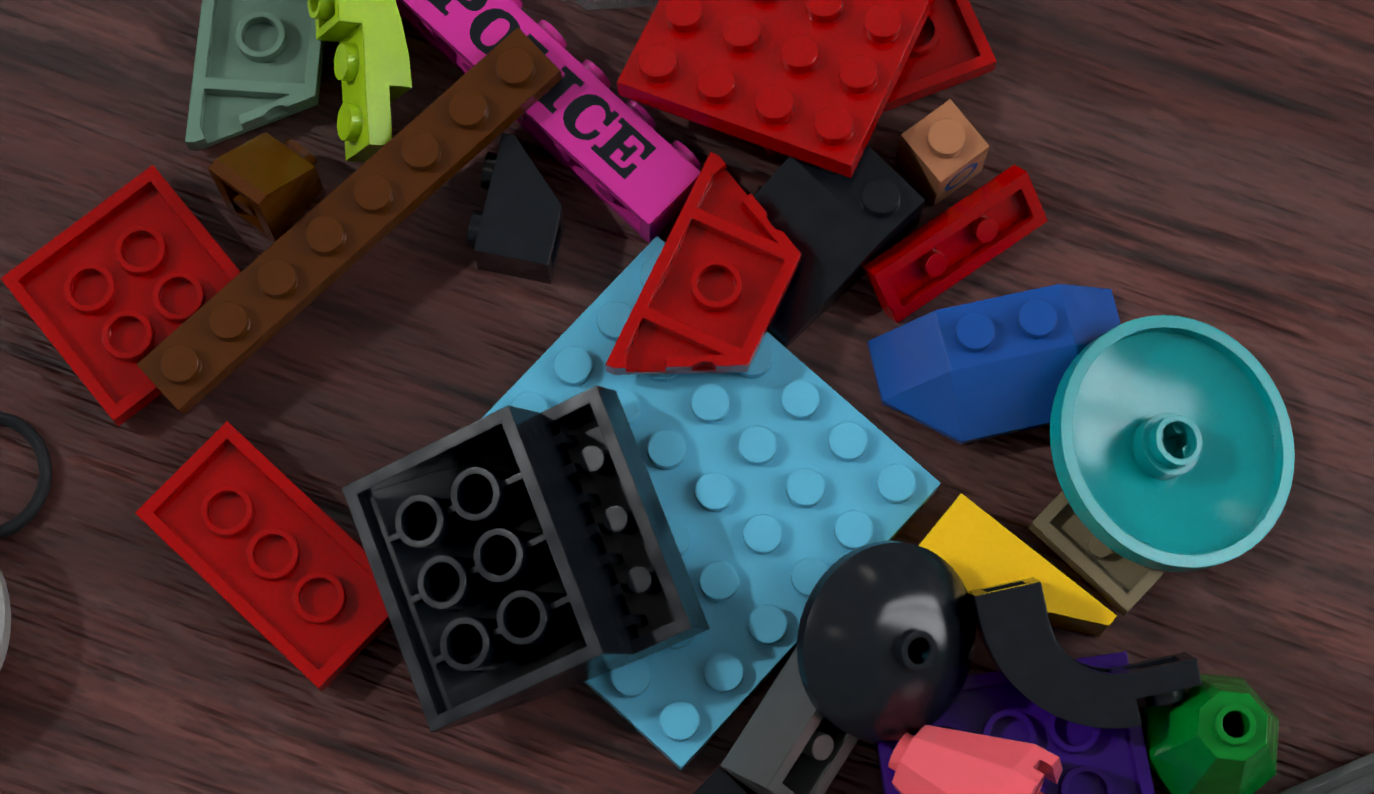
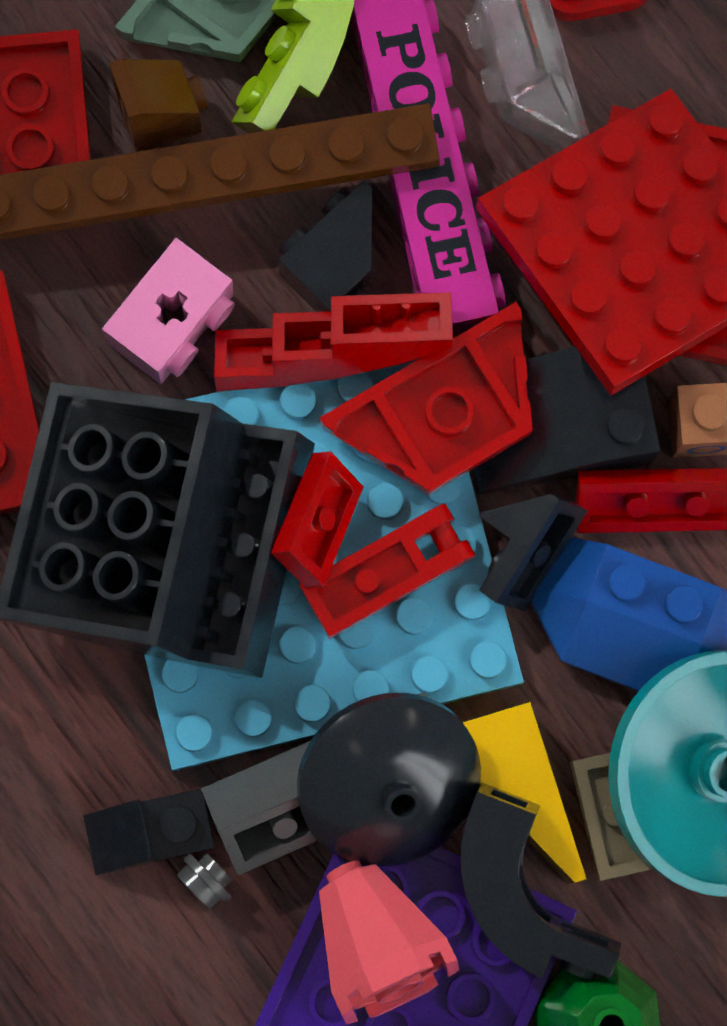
camera: 25 degrees right, 5 degrees up
(393, 327) = (173, 281): none -> bright pink brick
(585, 279) = (350, 339): none -> red slope
(666, 453) = (317, 519): none -> red plate
(754, 464) = (386, 571): none -> red plate
(868, 342) = (537, 537): none -> black slope

